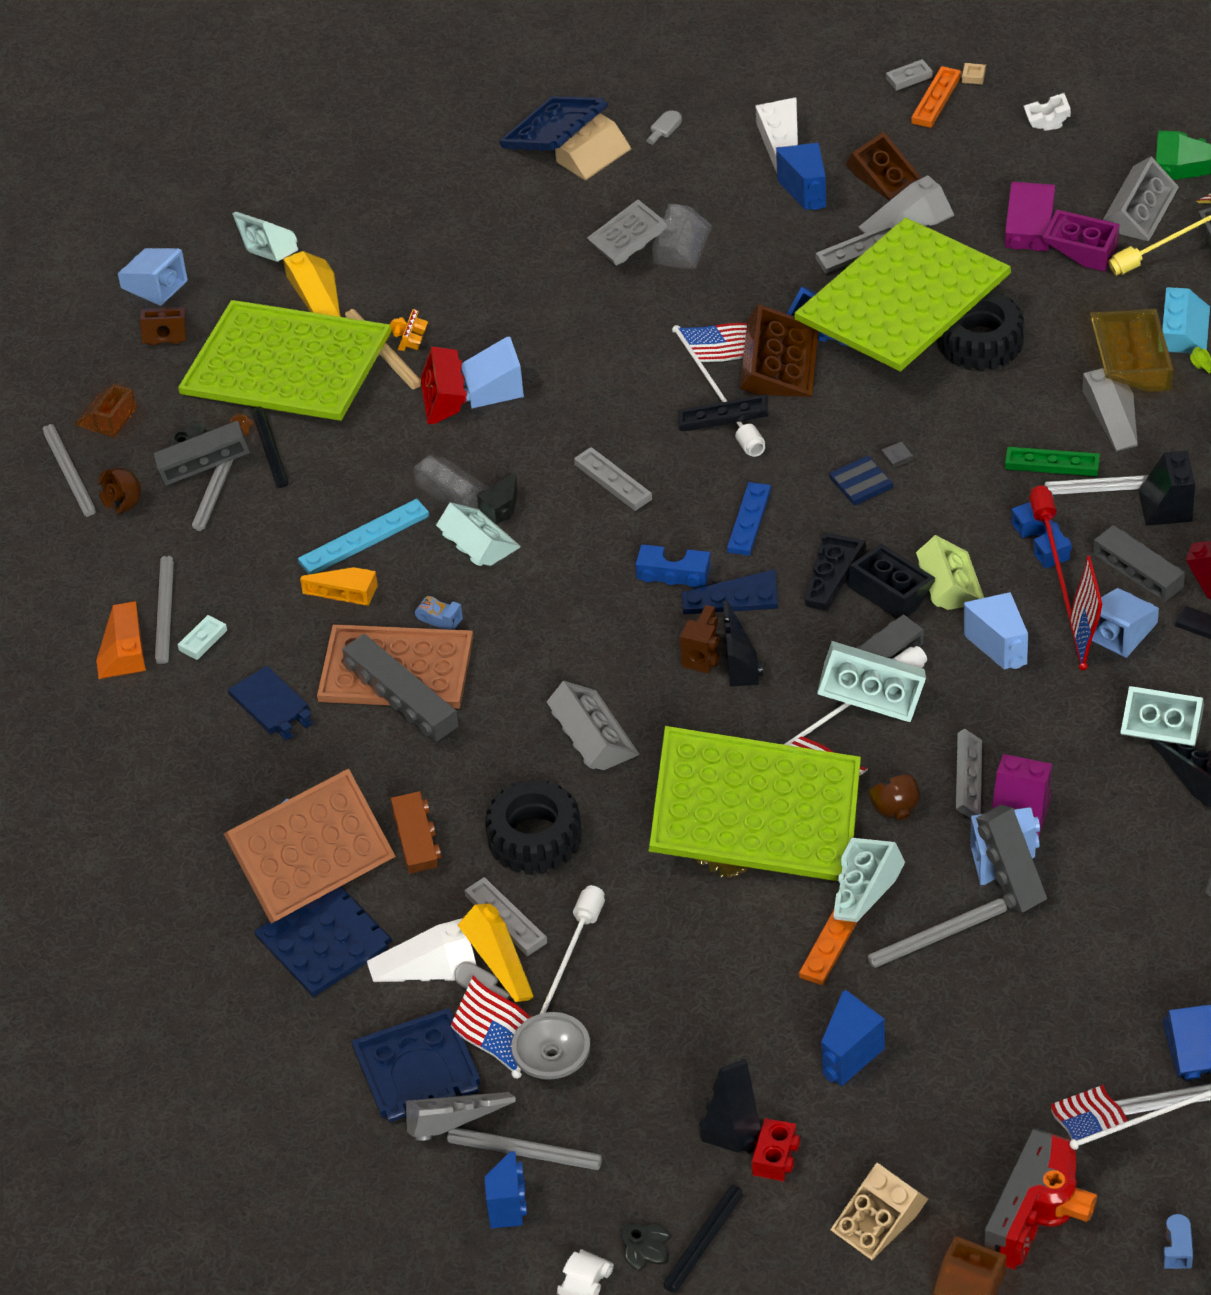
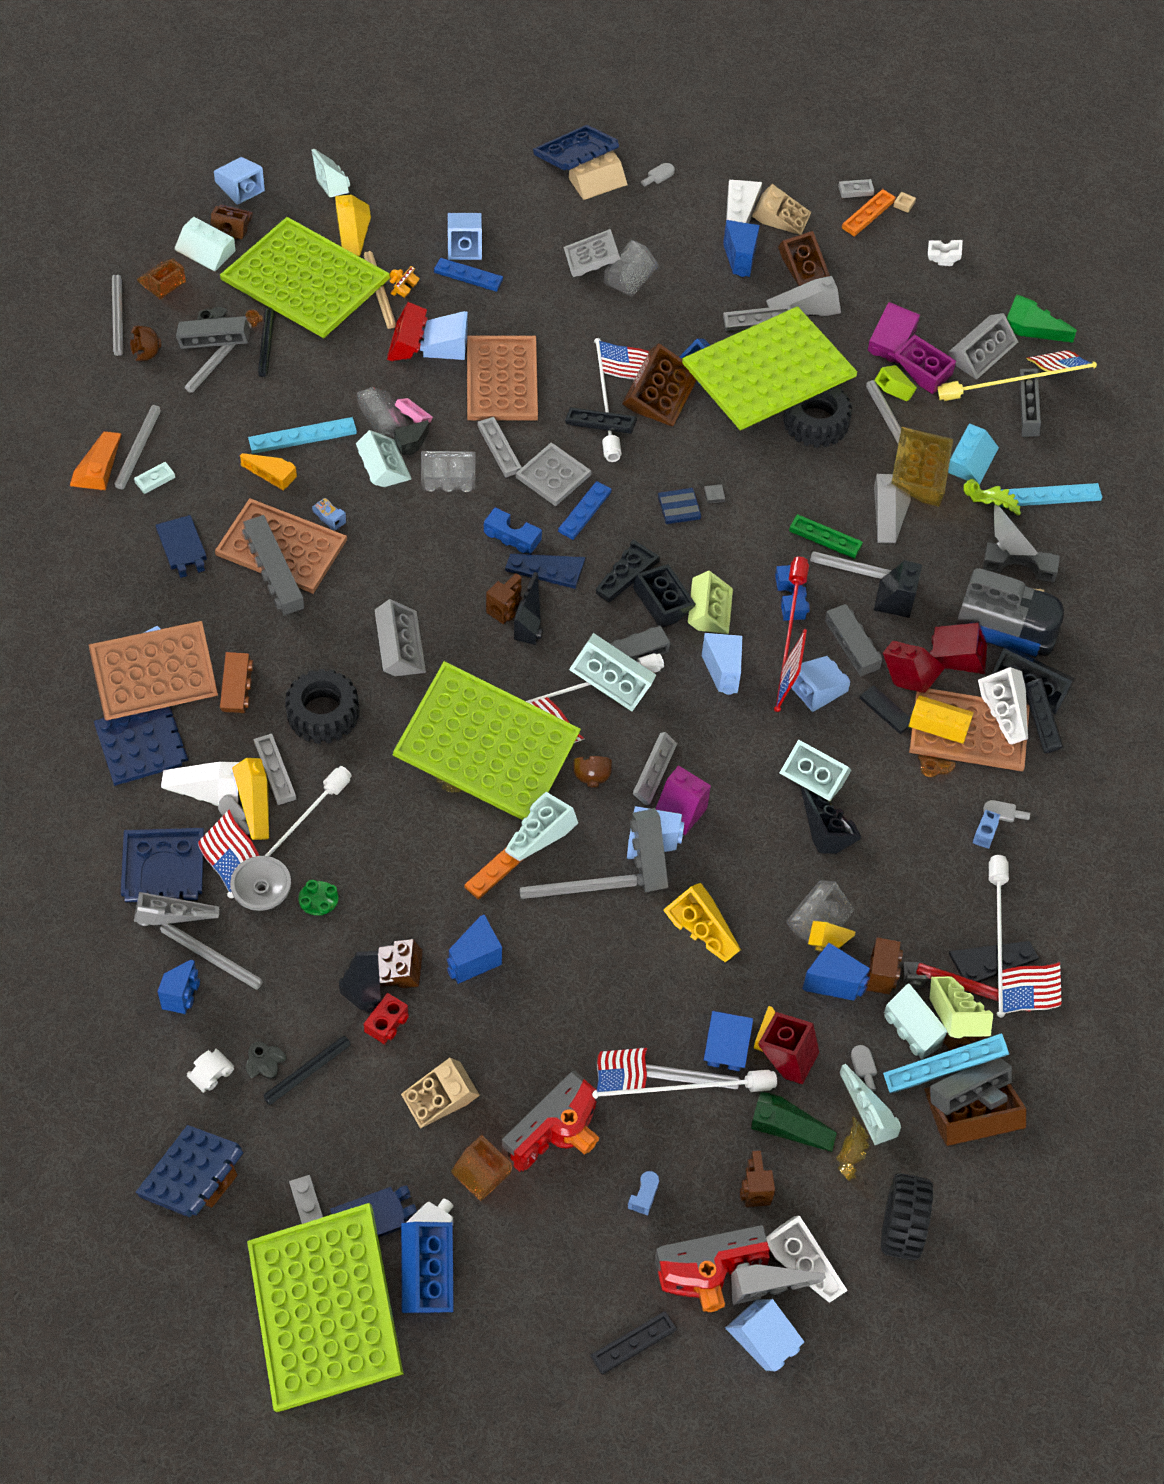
camera: 10 degrees right, 10 degrees up
(143, 359) = (205, 244): none -> light aqua slope
(461, 259) = (464, 236): none -> light blue slope
(483, 468) = (409, 408): none -> bright pink plate
(484, 301) = (468, 274): none -> blue plate
(565, 521) = (448, 470): none -> clear slope
(580, 402) = (502, 378): none -> nougat plate
(626, 1042) = (318, 897): none -> green dish
(692, 489) = (553, 474): none -> light grey plate
(770, 1082) = (400, 964): none -> brick
(831, 124) = (781, 211): none -> tan slope
(1057, 270) = (895, 382): none -> lime slope
(1058, 306) = (884, 409): none -> light grey axle
(1100, 919) = (701, 917): none -> yellow wedge

